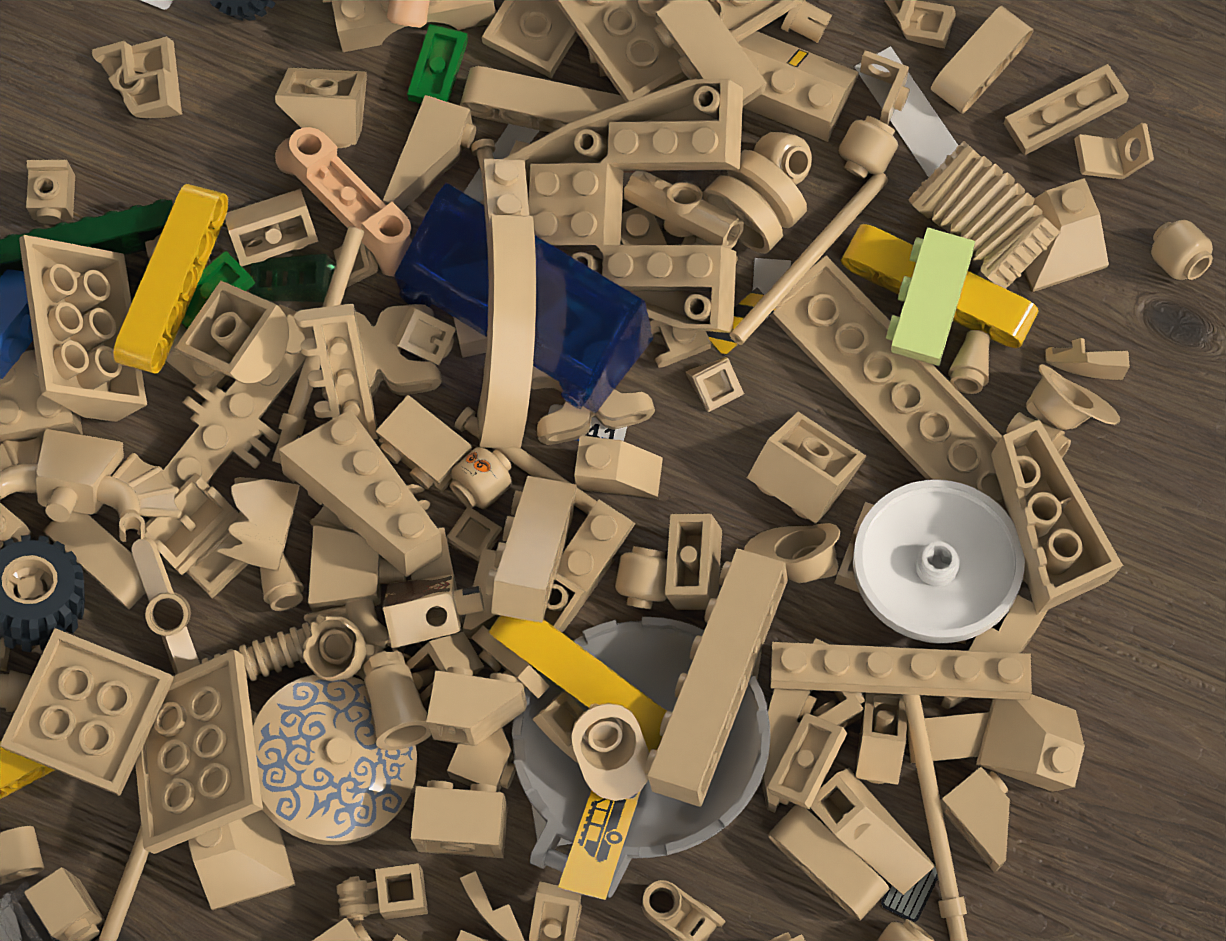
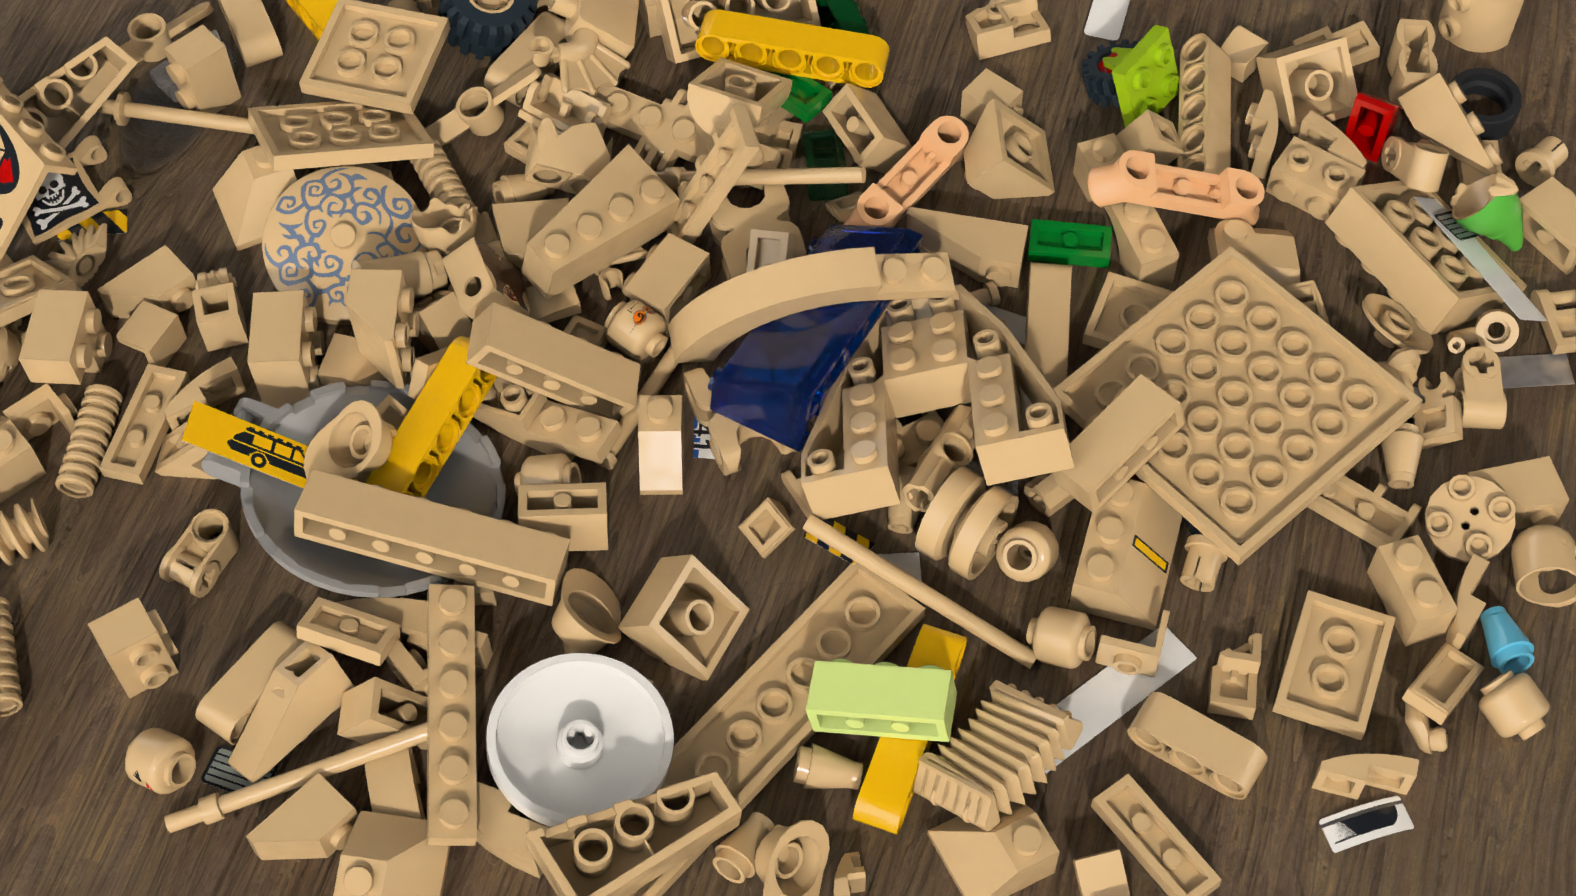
camera: 80 degrees right, 15 degrees down
(252, 107) = (984, 89): none -> tan brick

